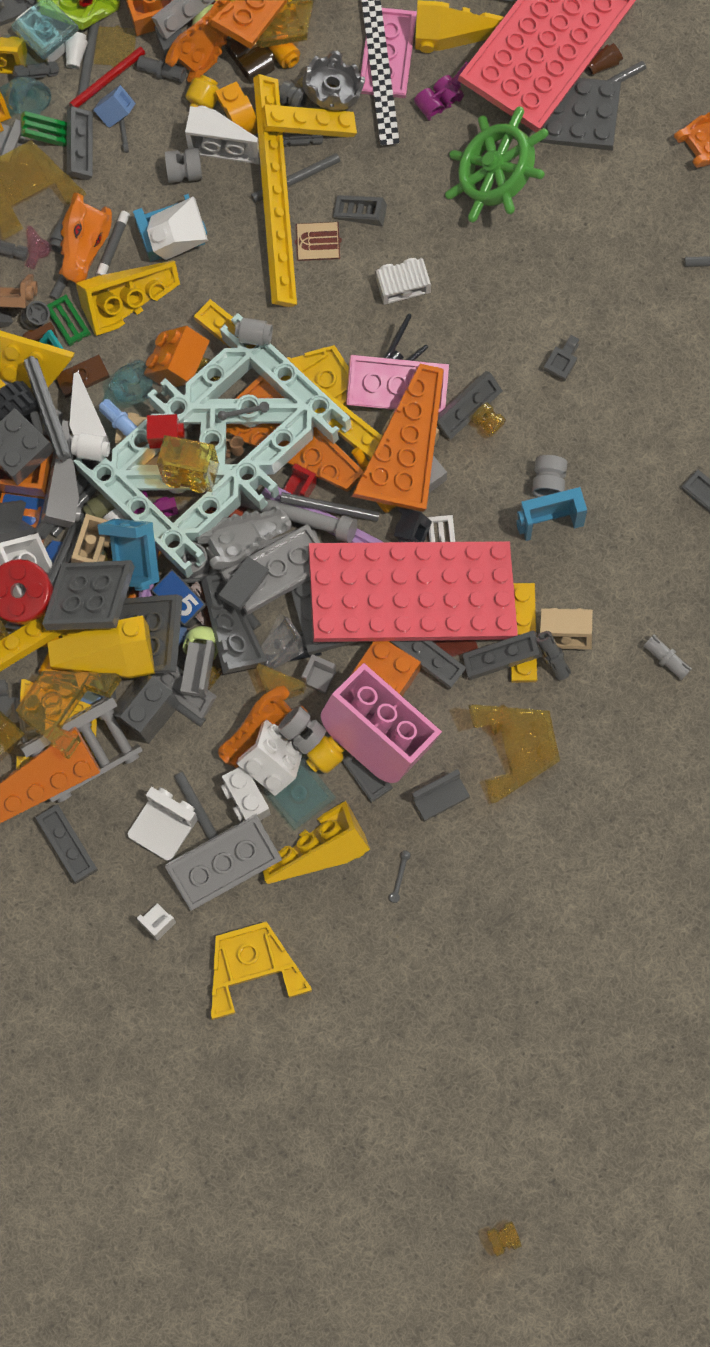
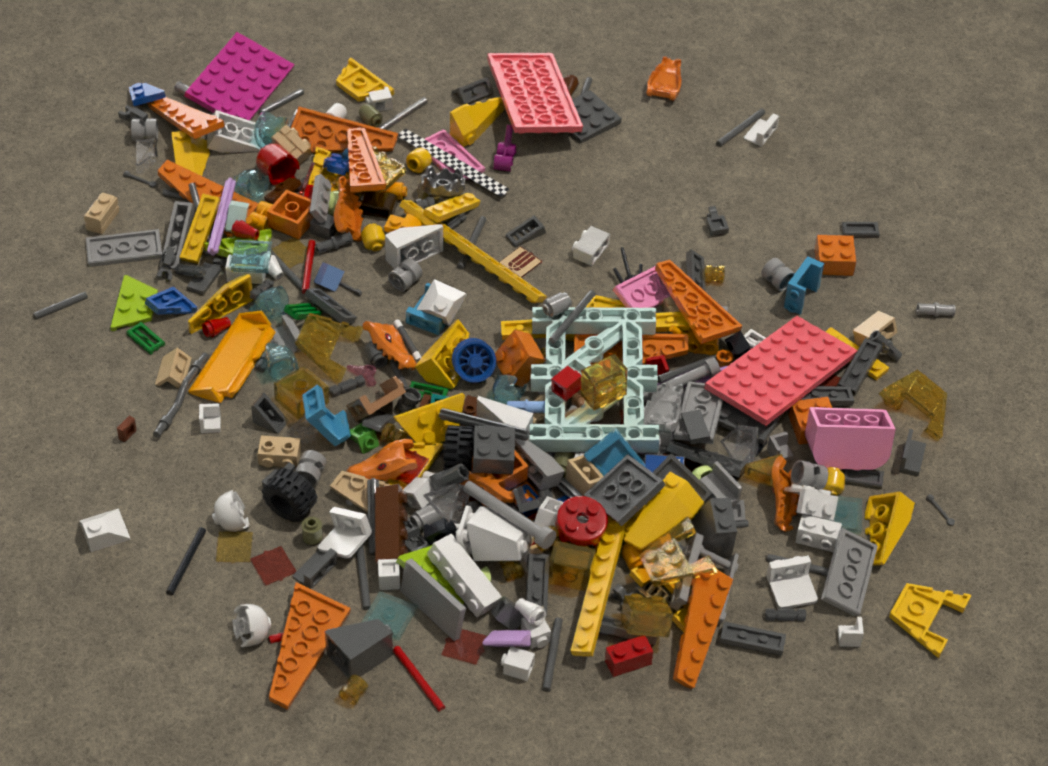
camera: 50 degrees left, 25 degrees down
(90, 447) = (535, 420): white brick -> none
(125, 847) = (784, 614): none -> dark grey axle
(132, 323) = (473, 360): none -> blue wheel
(258, 358) = (572, 316): none -> dark grey bar
(263, 407) = (604, 336): dark grey hinge -> none
(346, 32) = (418, 160): none -> yellow head
(380, 529) = (725, 354): none -> orange bush
(496, 164) = (579, 157): bright green piece -> none
(636, 504) = (836, 253): none -> orange brick

